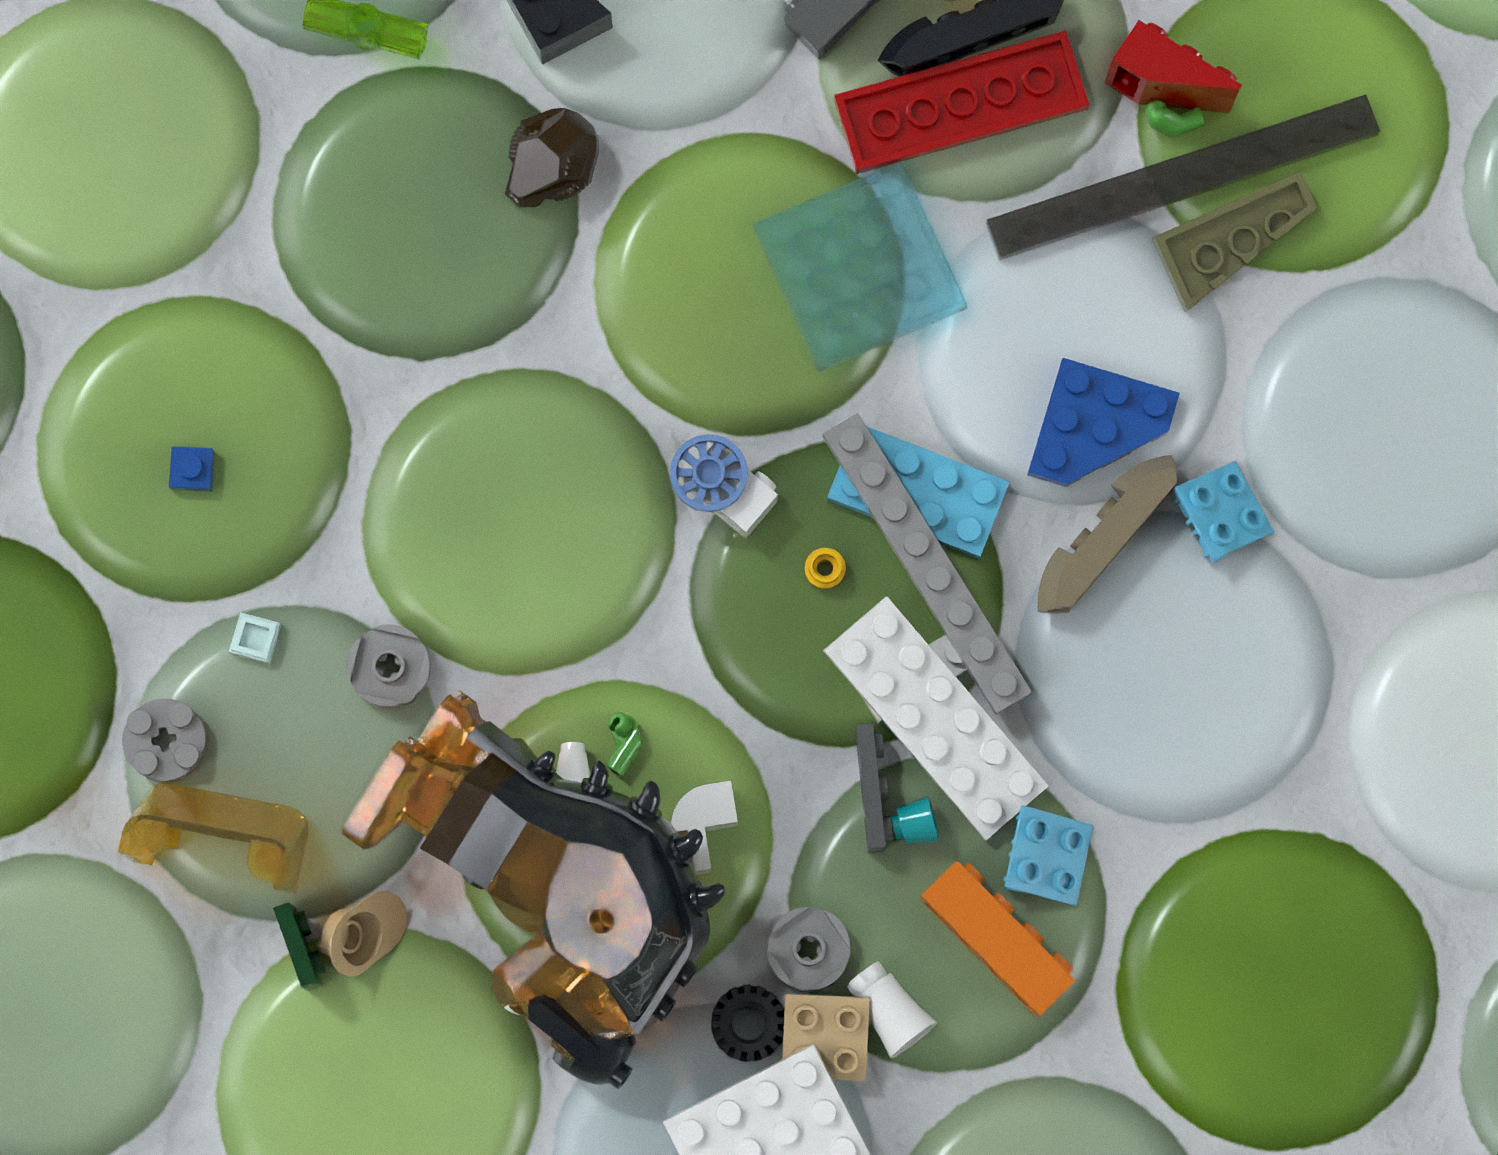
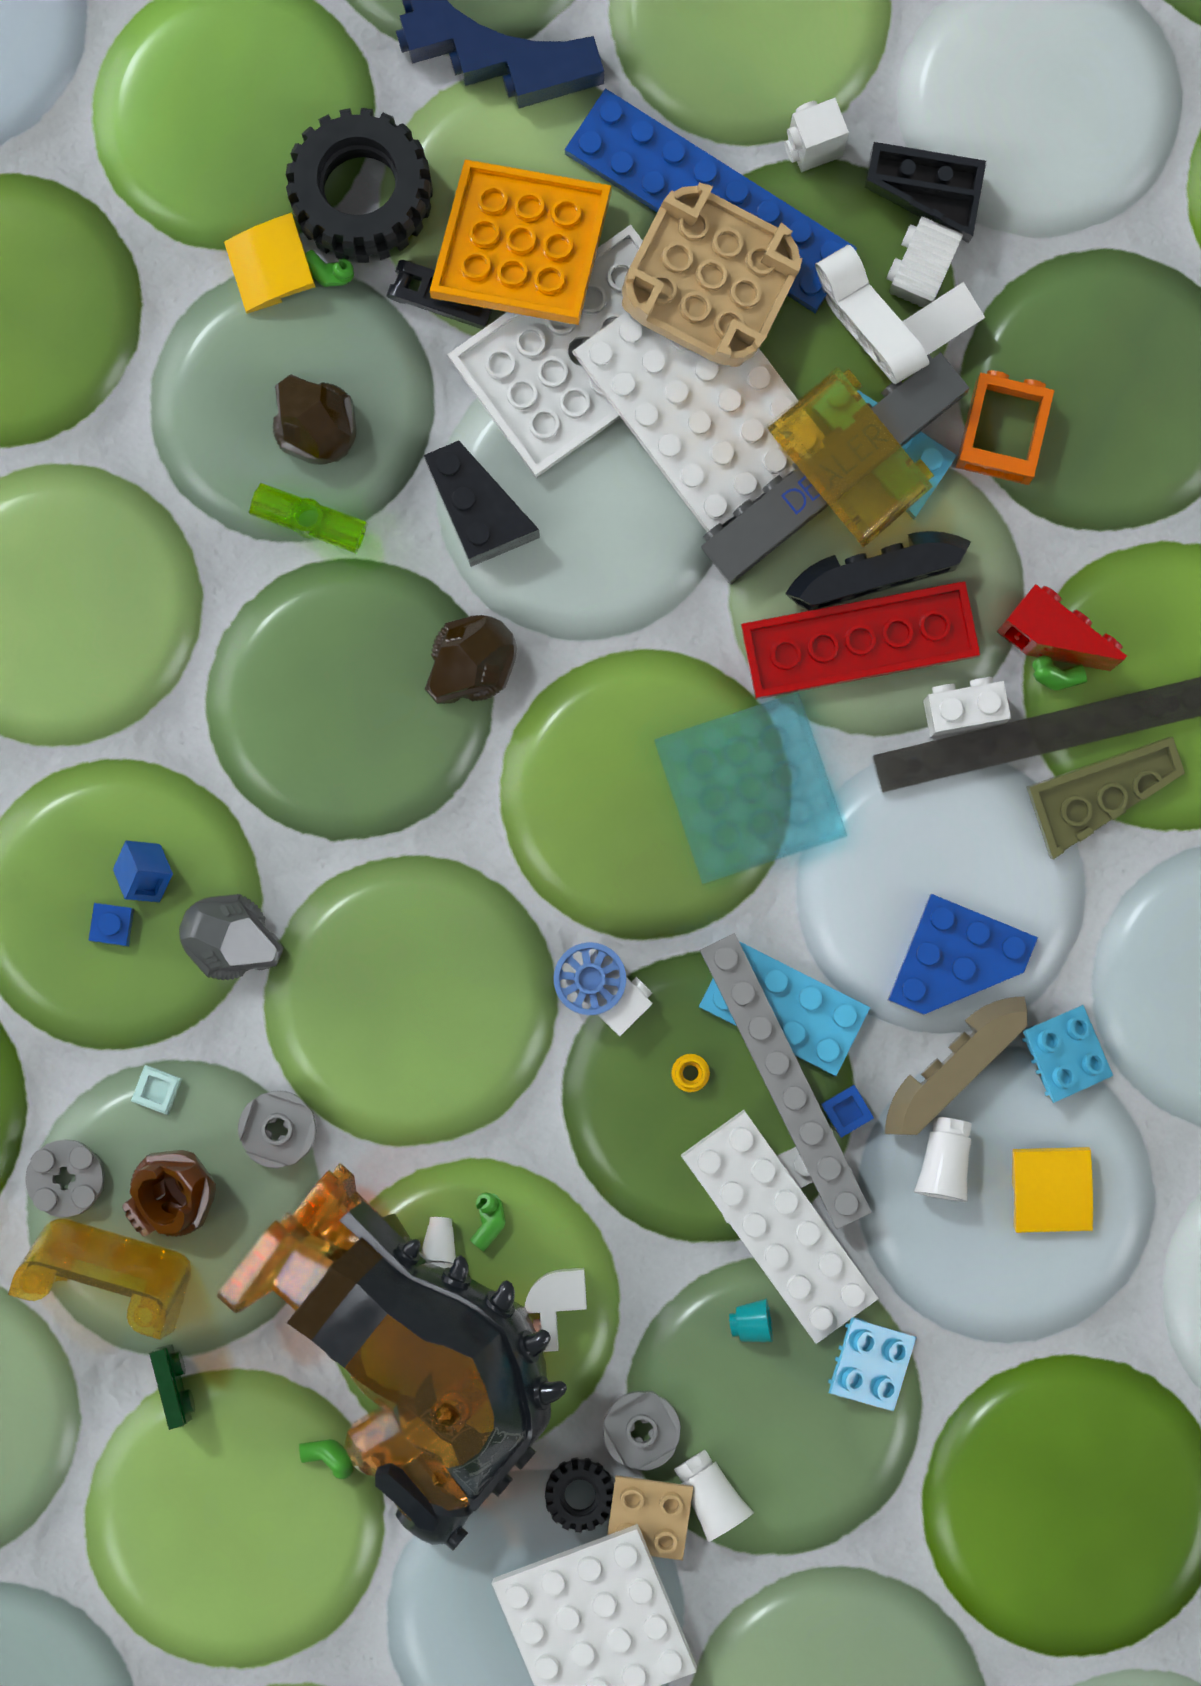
camera: 10 degrees right, 5 degrees up
(221, 408) = (142, 871): none -> blue panel
(279, 742) = (169, 1194): none -> reddish brown helmet
(318, 469) = (228, 937): none -> dark grey helmet
(364, 933) = (230, 1380): tan piece -> none
(477, 1005) = (331, 1453): none -> bright green arm
(873, 787) = (716, 1285): dark grey plate -> none
(995, 592) = (847, 1111): none -> blue plate
(998, 938) = (817, 1439): orange brick -> none
(1079, 161) = (967, 708): none -> white brick
(1106, 634) = (946, 1161): none -> white plant
(1222, 655) = (1052, 1189): none -> yellow slope

